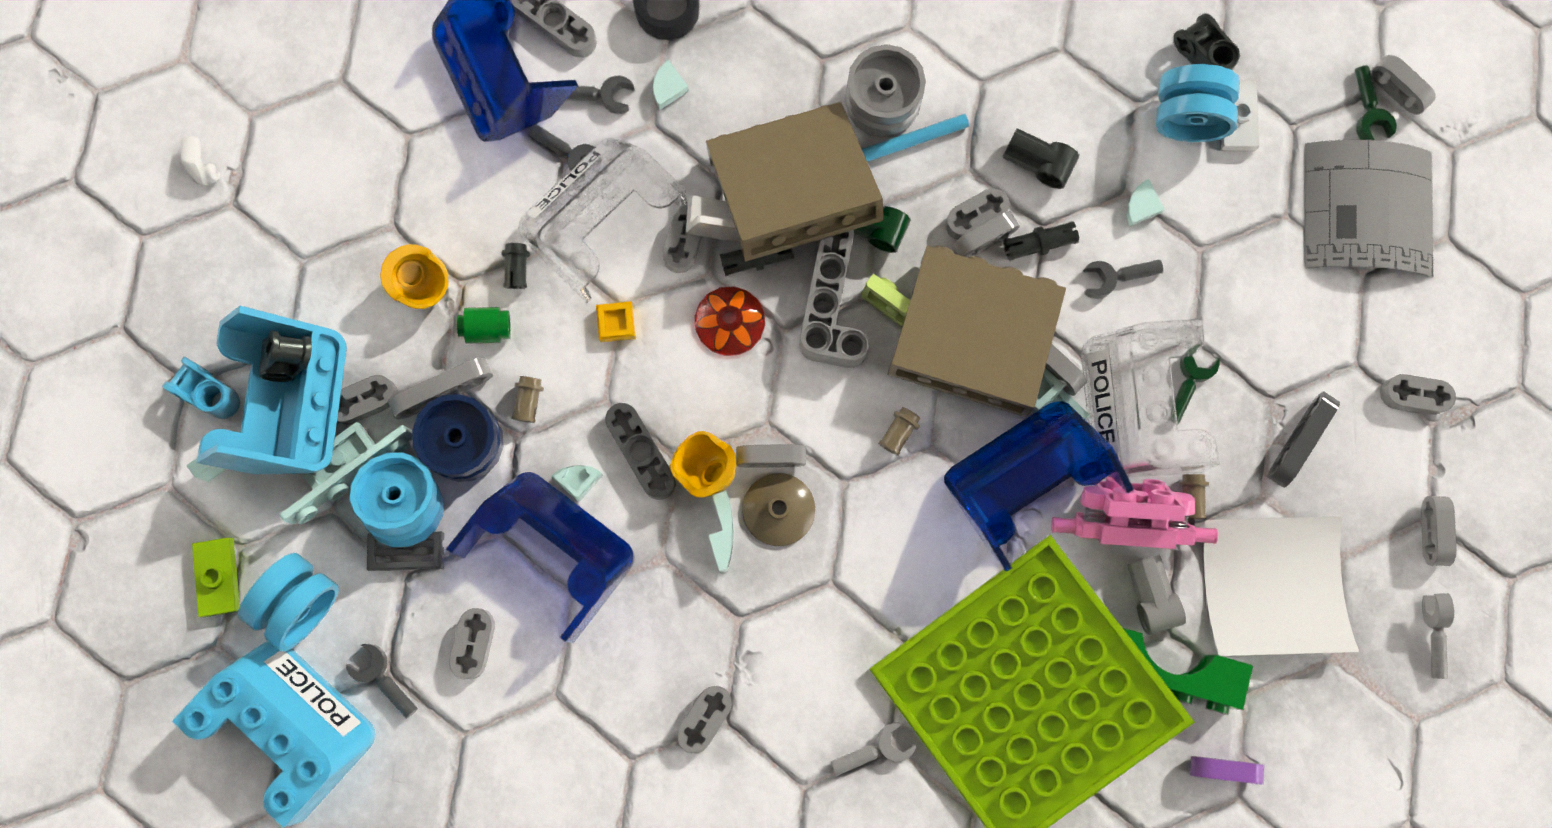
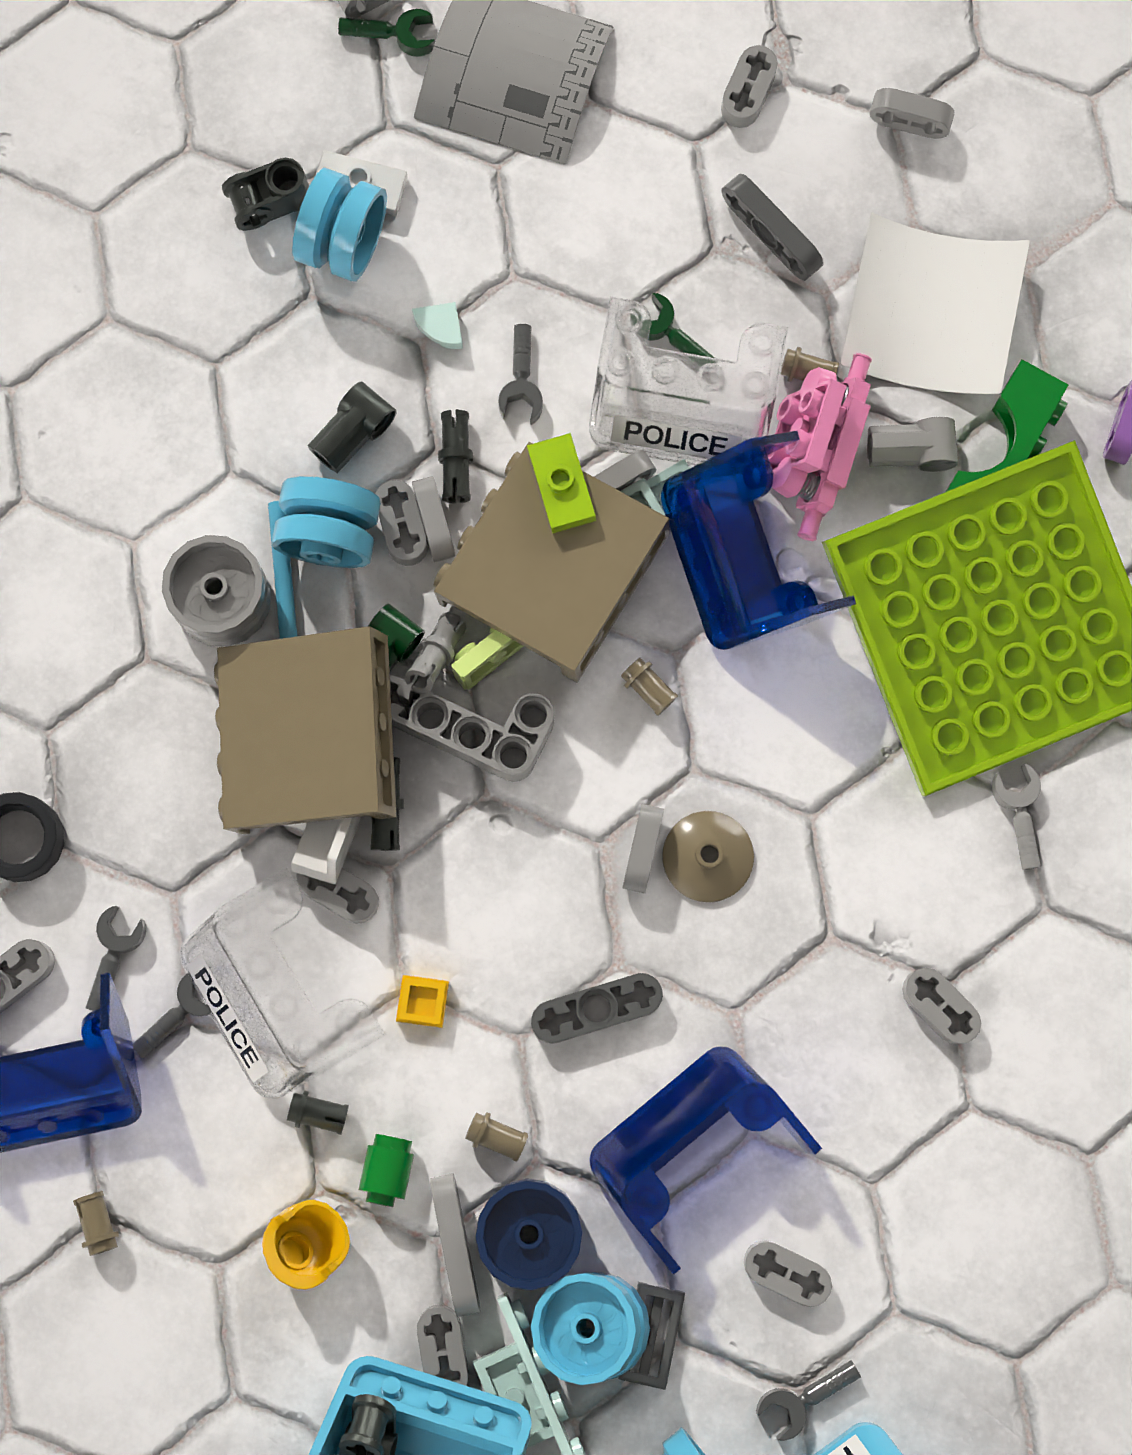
camera: 75 degrees left, 0 degrees up
(402, 132) = (95, 1223): none -> dark tan pin
(577, 480) = (613, 1096): light aqua tile -> none
(668, 85) = (127, 861): light aqua tile -> none
(703, 464) = (639, 930): yellow helmet -> none
(723, 540) = (735, 931): light aqua slope -> none
(734, 337) = (457, 882): clear red dish -> none
(880, 261) = (435, 652): none -> light grey pin
(959, 153) = (326, 522): none -> medium azure wheel
(1038, 318) = (561, 483): none -> lime plate
(1438, 614) = (1005, 143): light grey piece -> none

